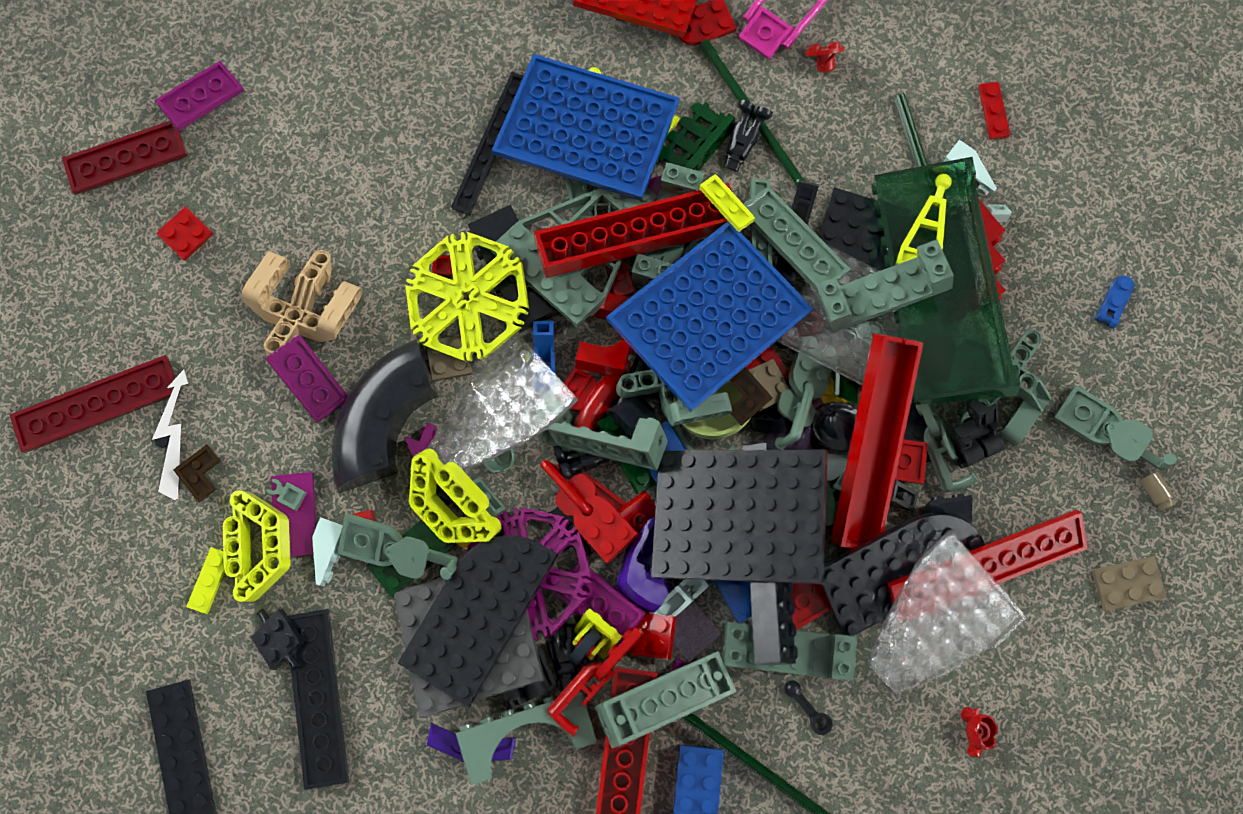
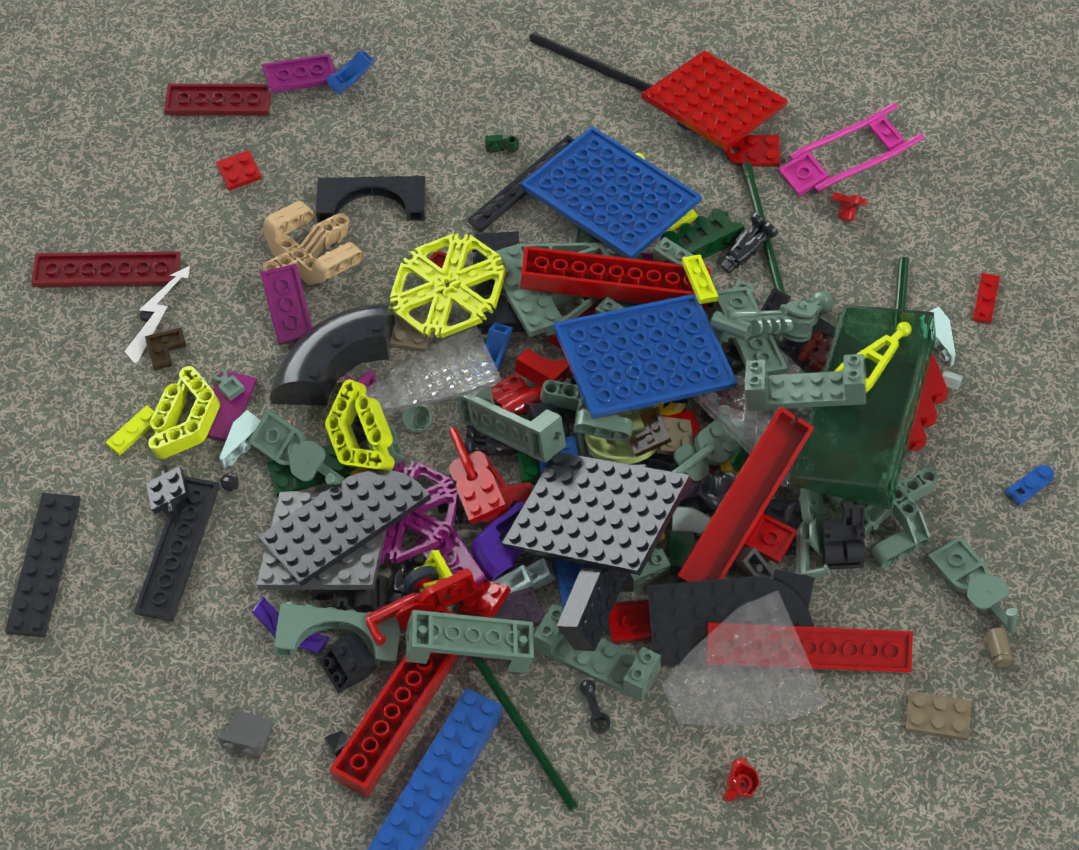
camera: 25 degrees right, 20 degrees down
(253, 77) = (350, 72): none -> blue arch
(301, 224) = (405, 190): none -> black arch
(337, 601) = (229, 481): none -> black plate
(443, 106) = (496, 143): none -> dark green plate
(547, 758) = (347, 662): none -> black slope
(834, 217) = (791, 321): none -> sand green piece
(870, 238) = (817, 358): none -> clear red plate

